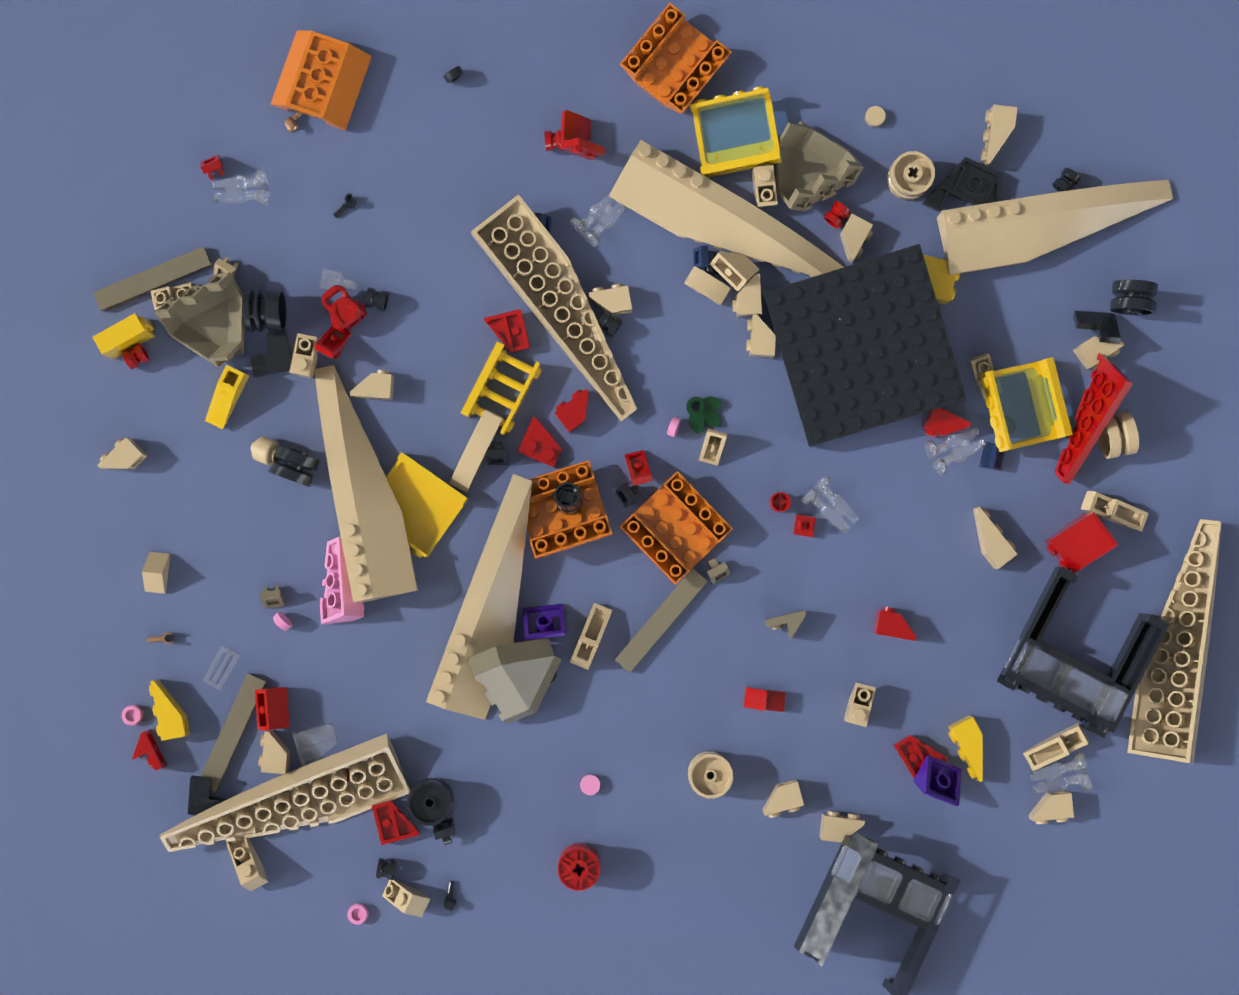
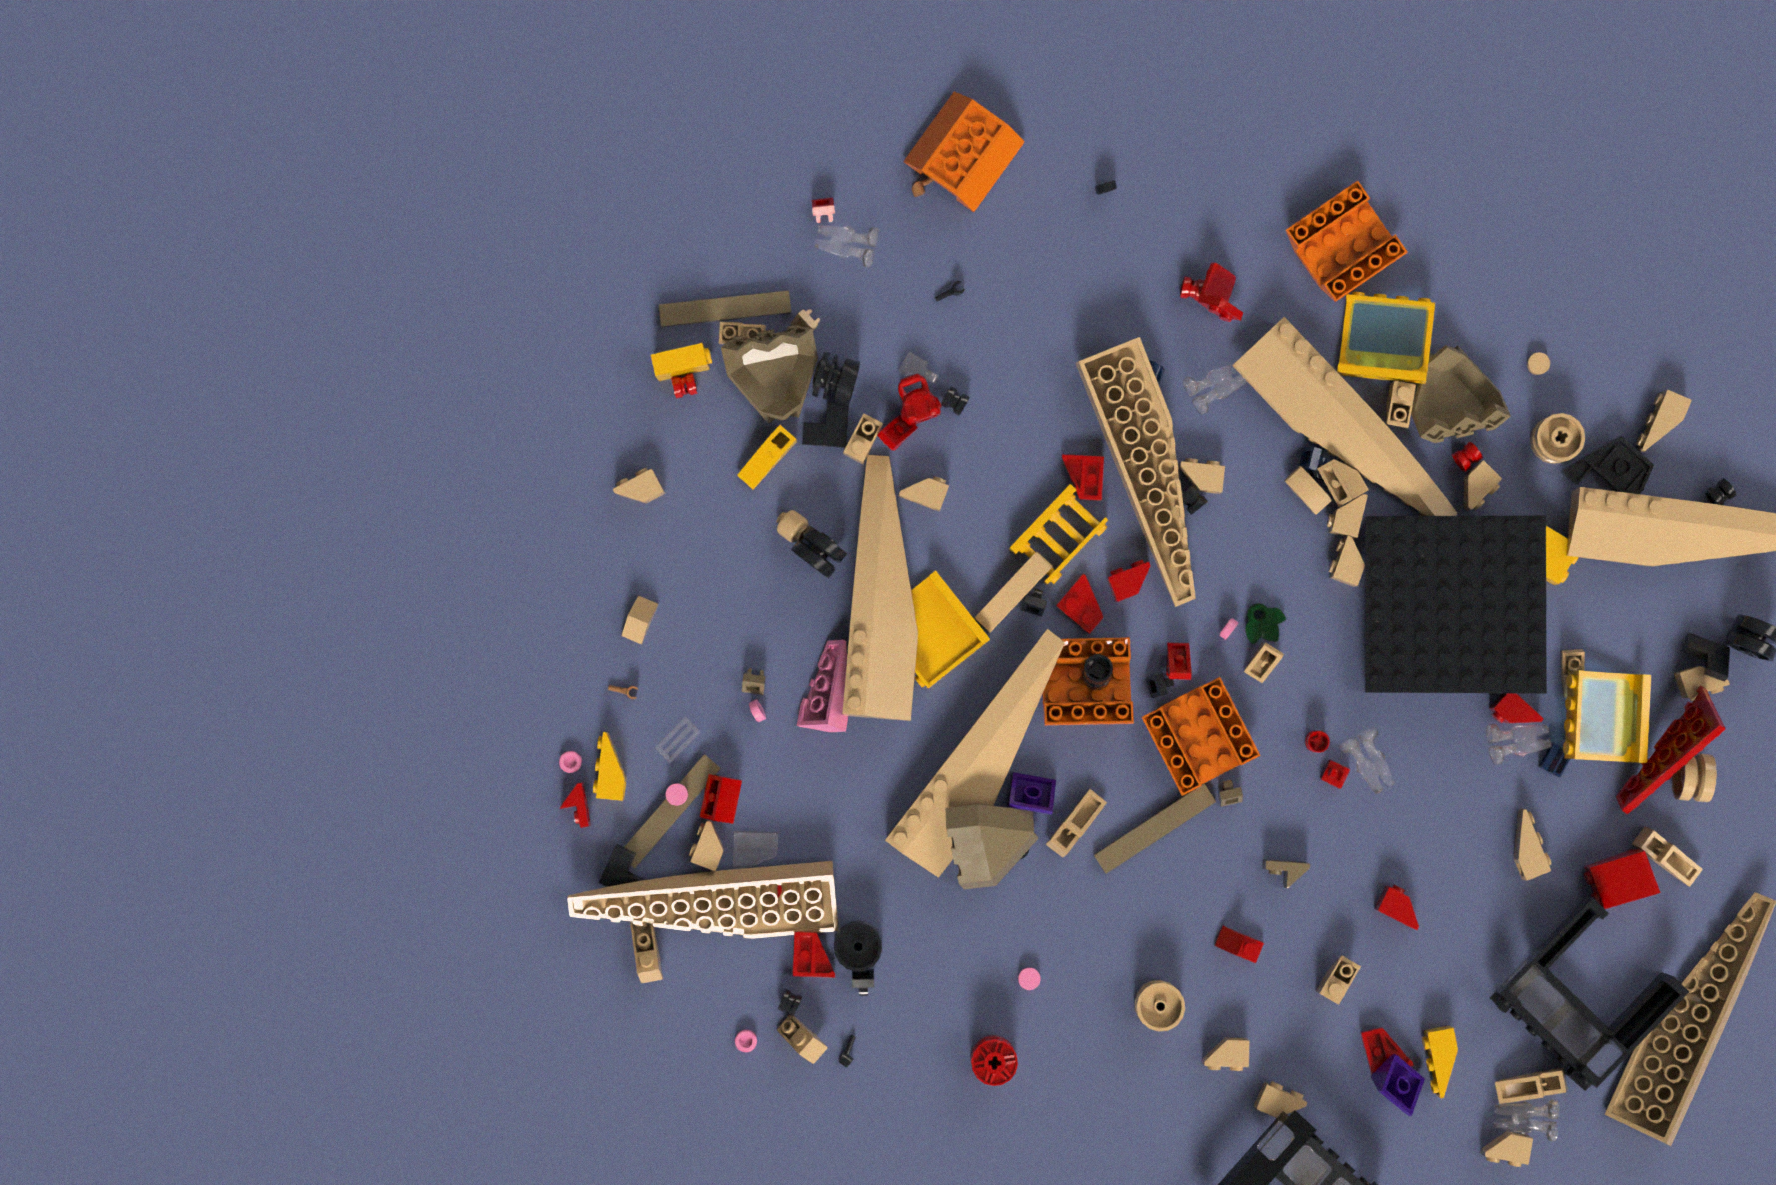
camera: 15 degrees right, 0 degrees up
(232, 716) = (676, 794): none -> bright pink tile

